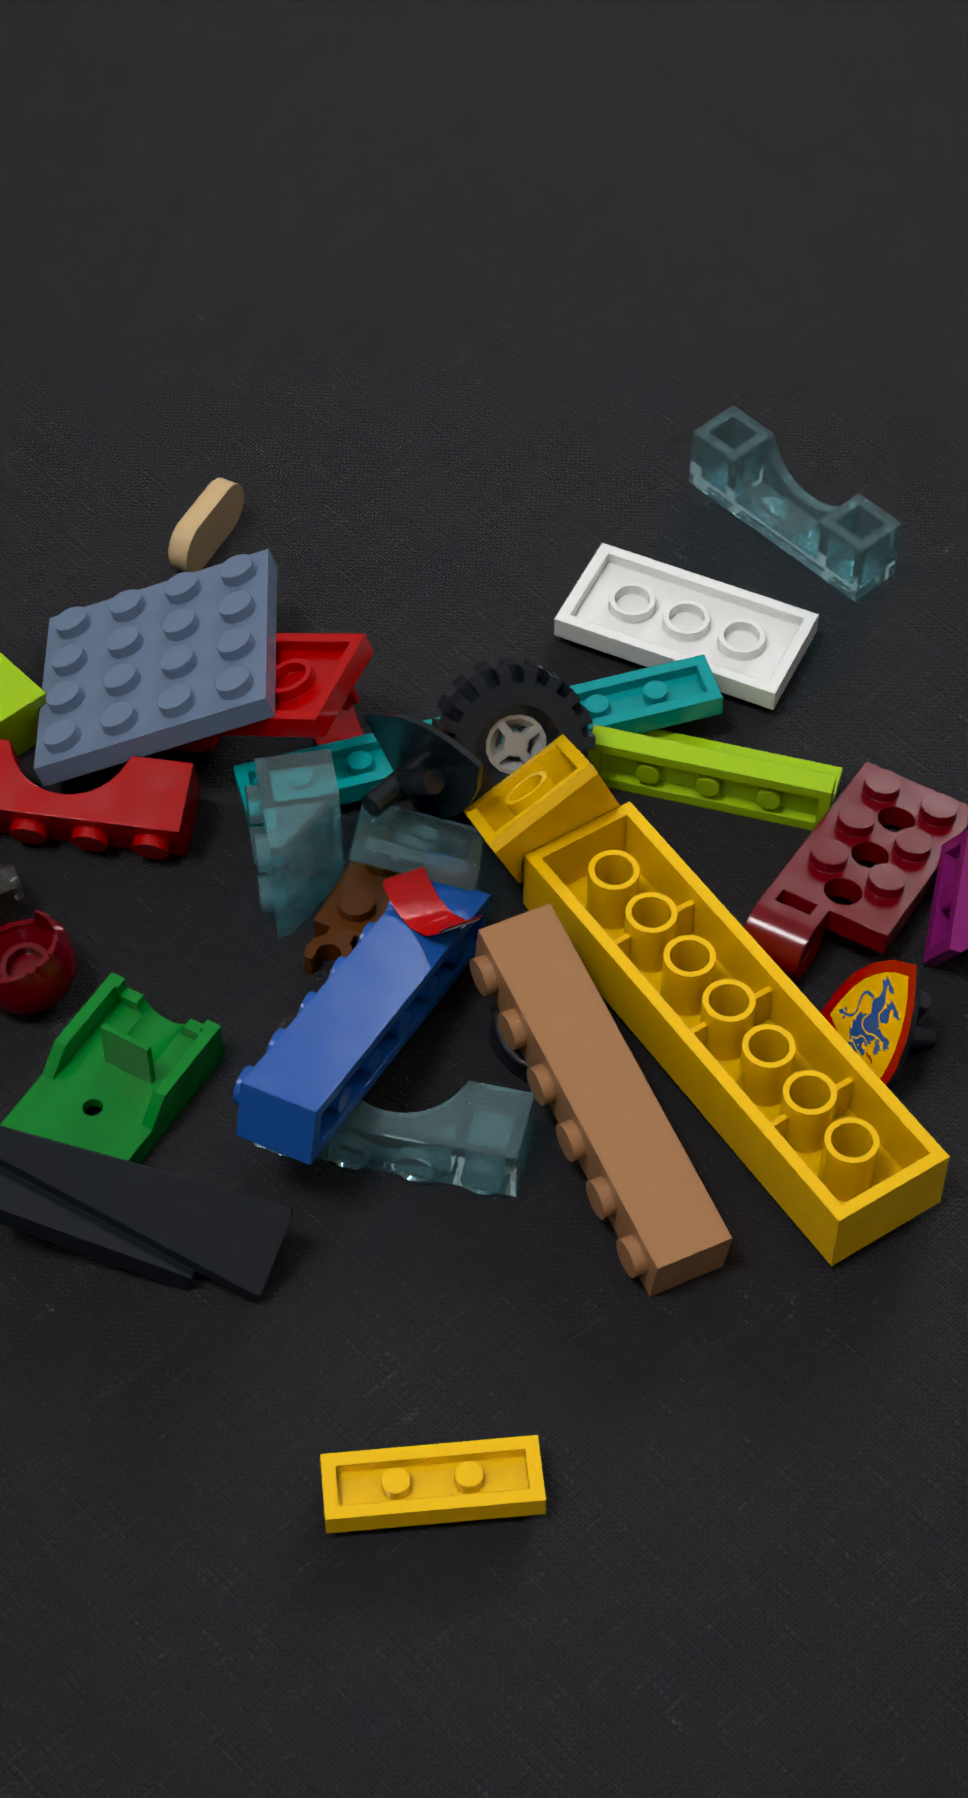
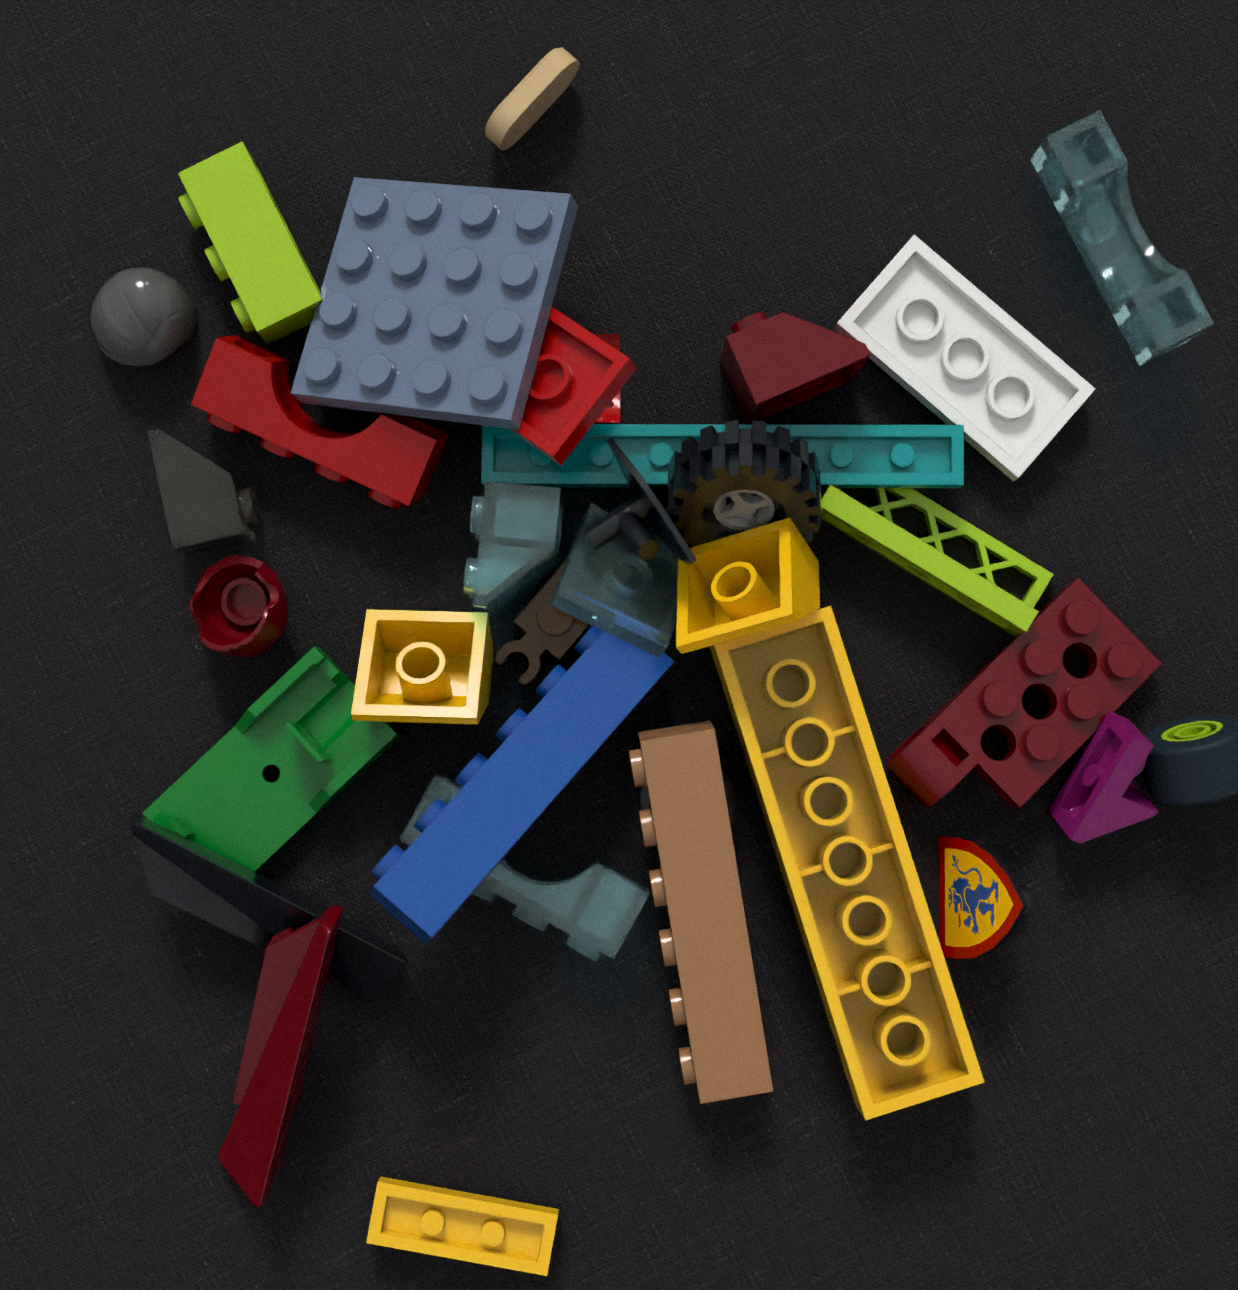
camera: 15 degrees right, 35 degrees up
(169, 1336) = (277, 1051): none -> dark red wedge
(236, 954) = (424, 667): none -> yellow slope
(420, 904) = (608, 683): red sticker -> none
(524, 622) = (786, 363): none -> dark red slope

